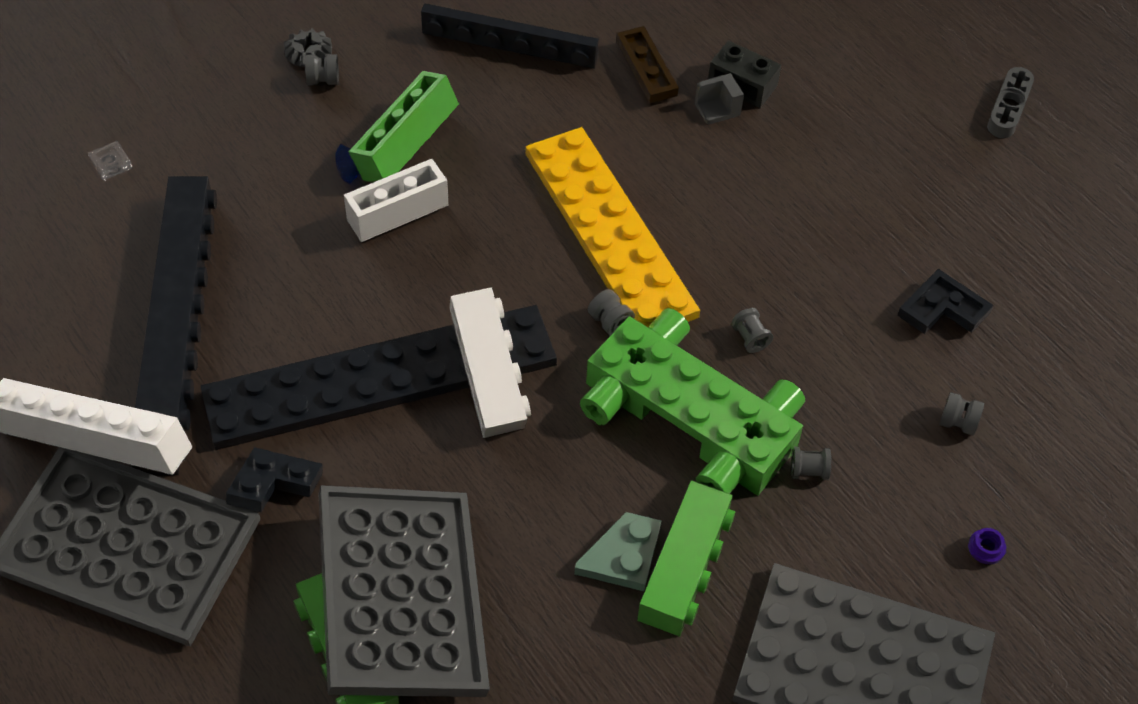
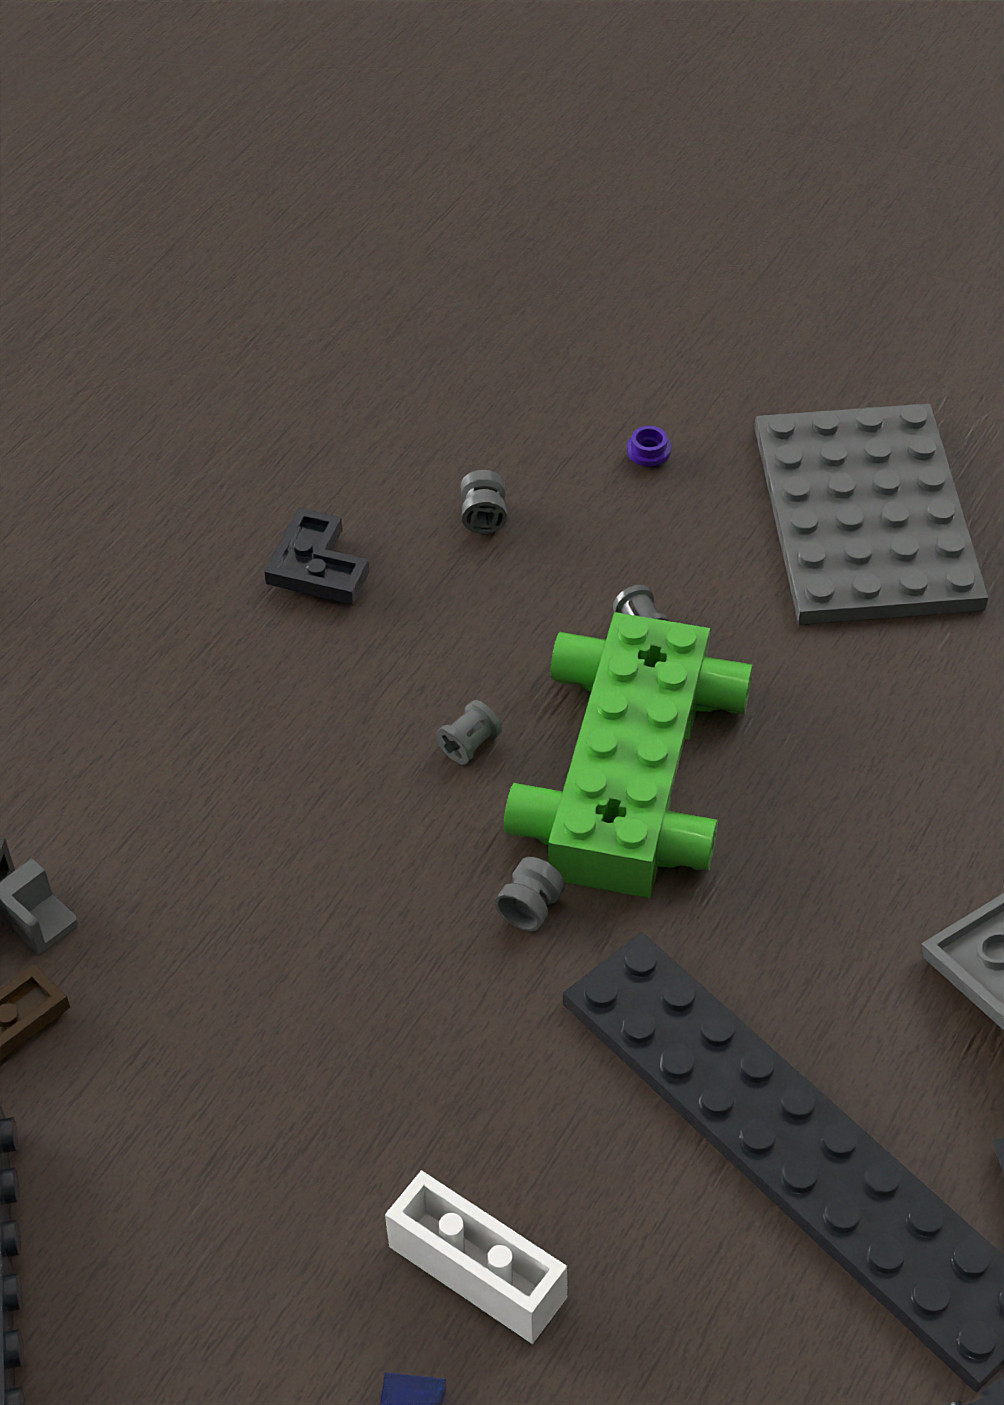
camera: 110 degrees left, 5 degrees down
(404, 127) = (306, 1321): bright green brick -> none
(488, 362) = (719, 982): white brick -> none
(609, 227) = (353, 974): yellow plate -> none
(623, 552) = (878, 759): sand green wing -> none
(685, 558) = (854, 688): bright green brick -> none

